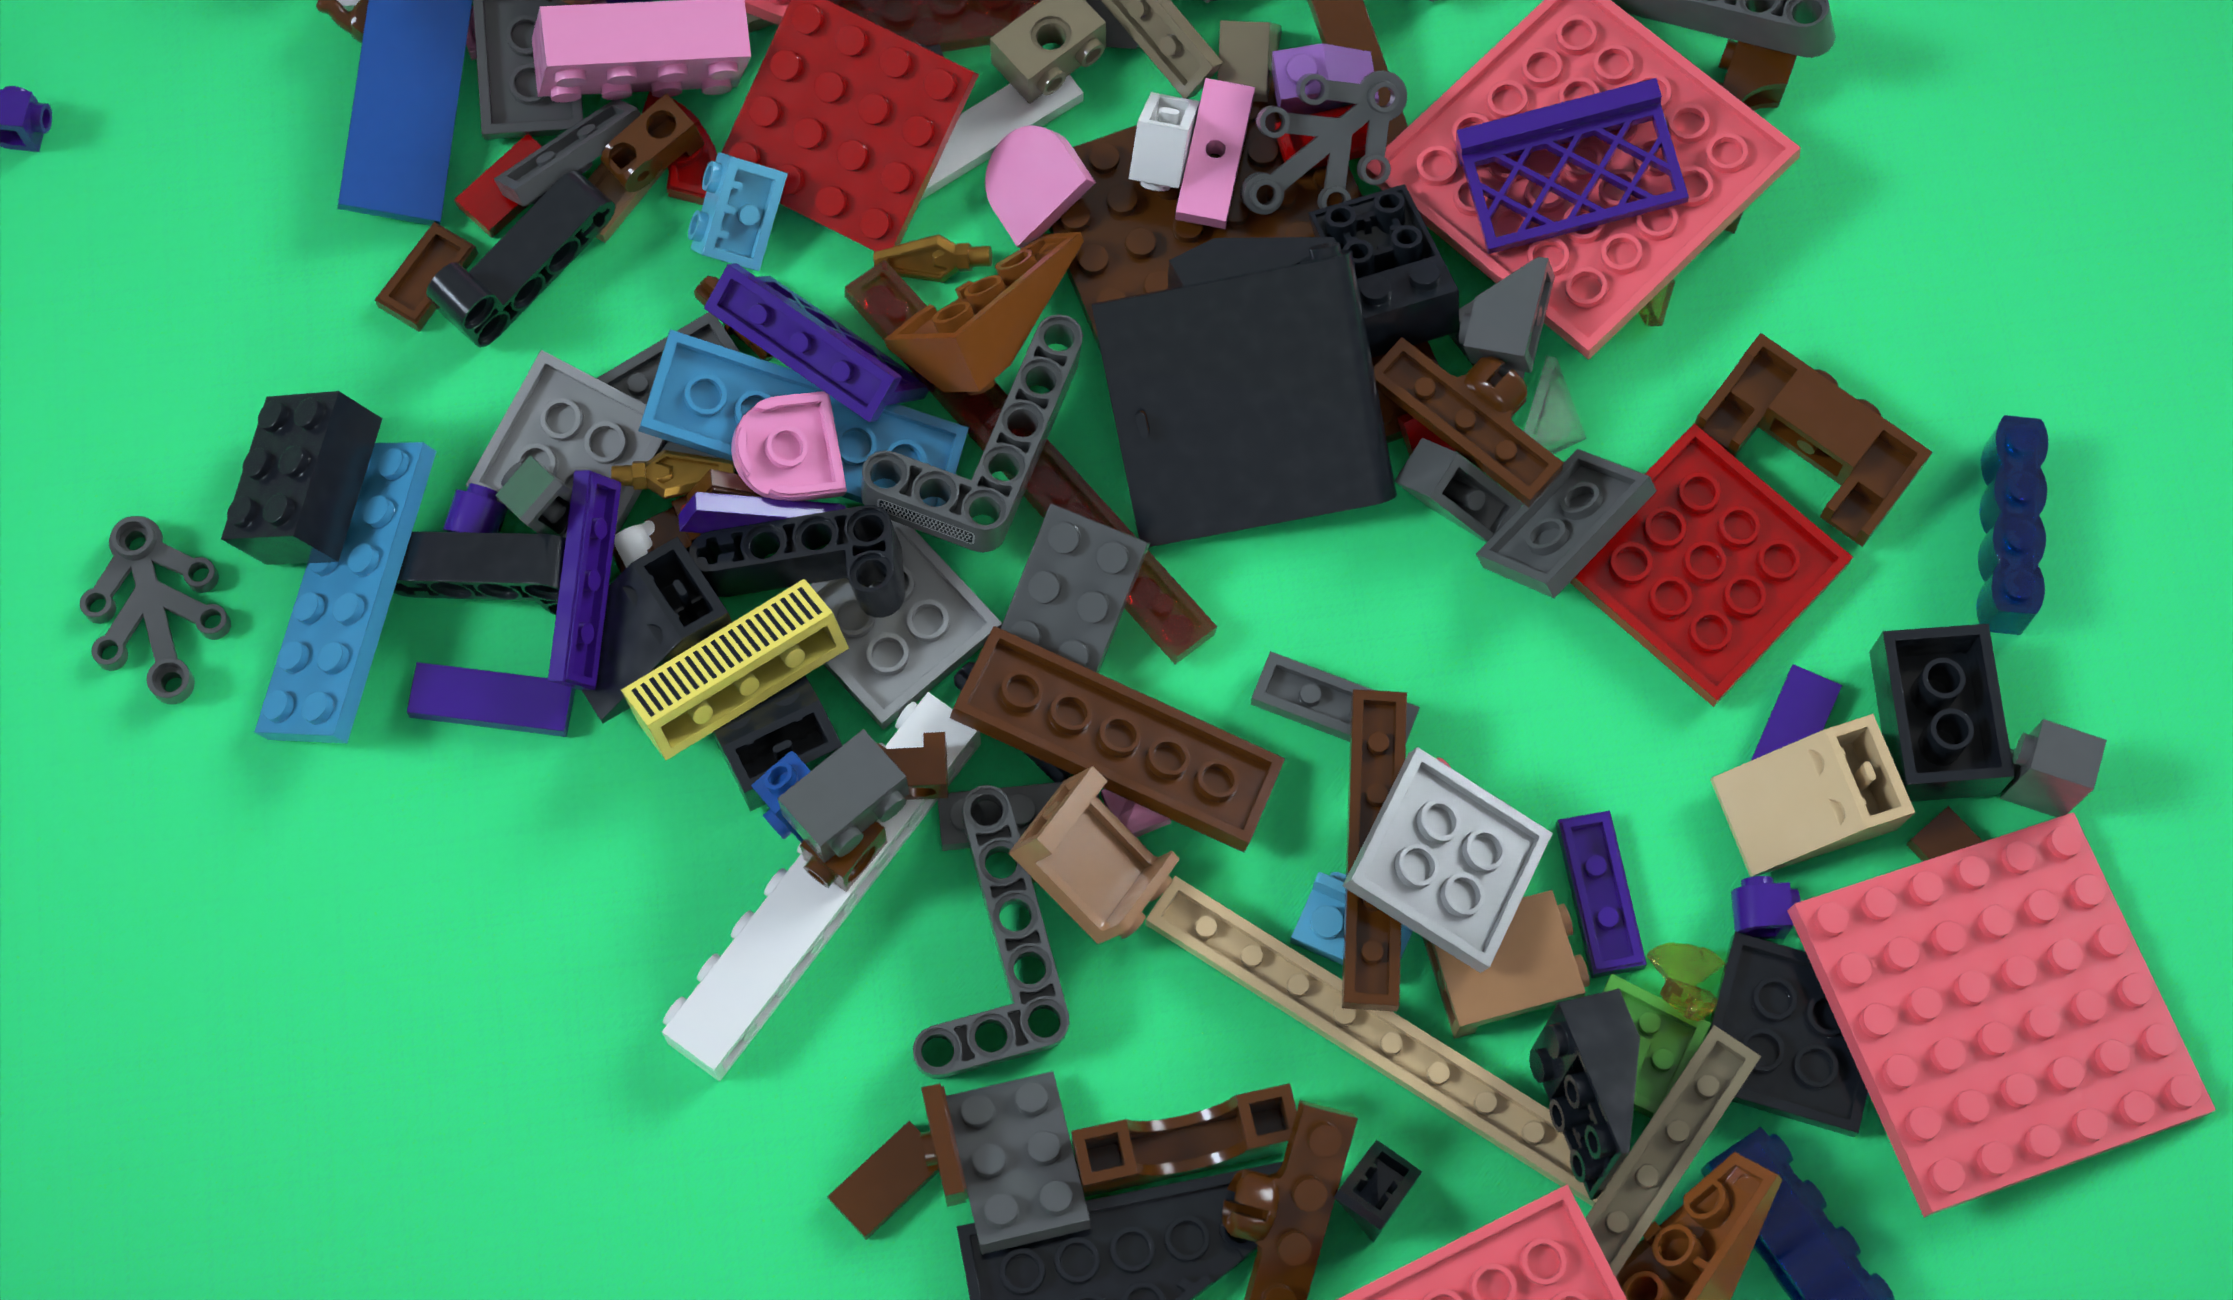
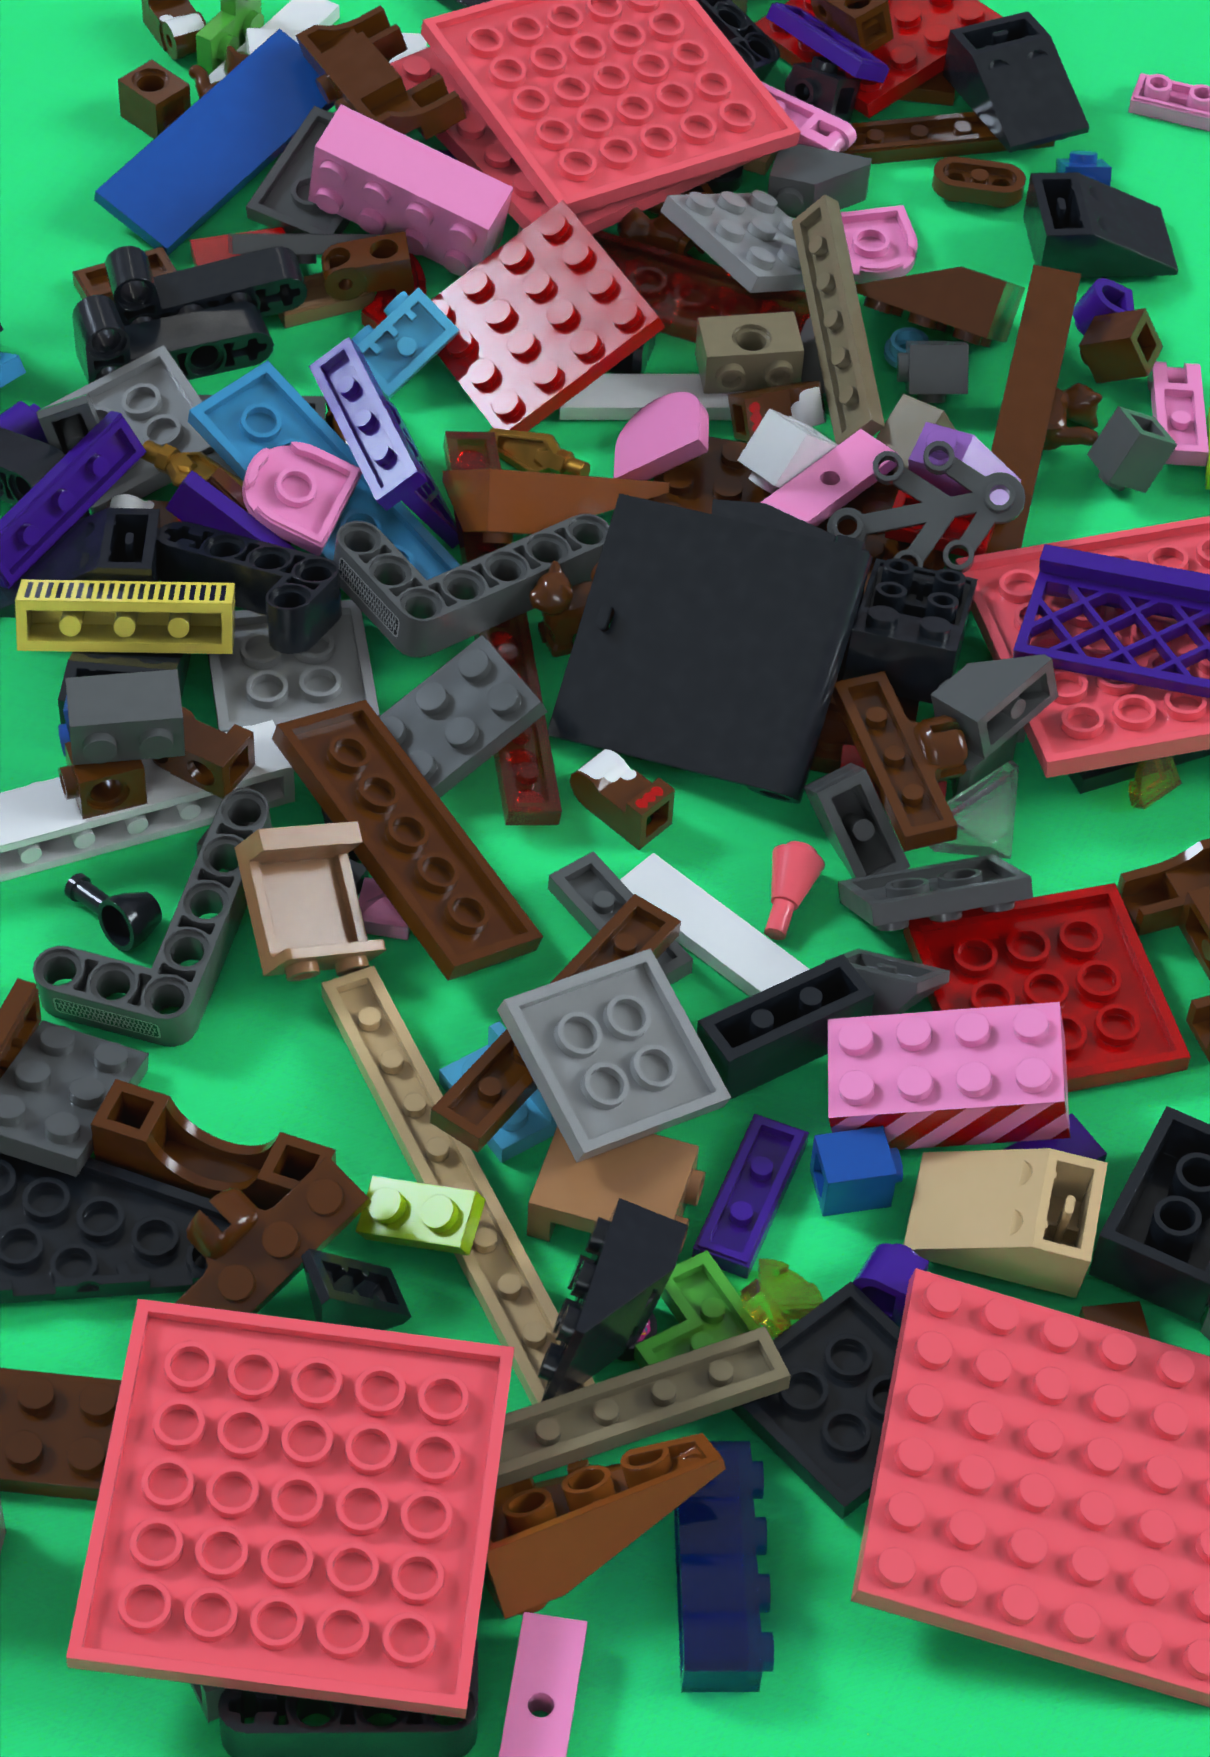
camera: 30 degrees right, 20 degrees down
(310, 69) = (152, 98): none -> brick
(545, 320) = (198, 341): none -> black beam
(939, 954) = (124, 918): none -> black bar
(1084, 417) = (560, 608): none -> reddish brown animal
(1107, 89) = (796, 400): none -> reddish brown leg
(1251, 578) = (624, 798): none -> leg
(1380, 1084) = (421, 1215): none -> plate
(1414, 665) = (712, 929): none -> white tile
(1439, 573) = (793, 875): none -> coral cone
(1539, 728) = (782, 1024): none -> black brick
(1578, 635) = (896, 981): none -> dark grey slope
(1670, 826) = (854, 1170): none -> blue brick
(1699, 704) = (951, 1075): none -> bright pink brick

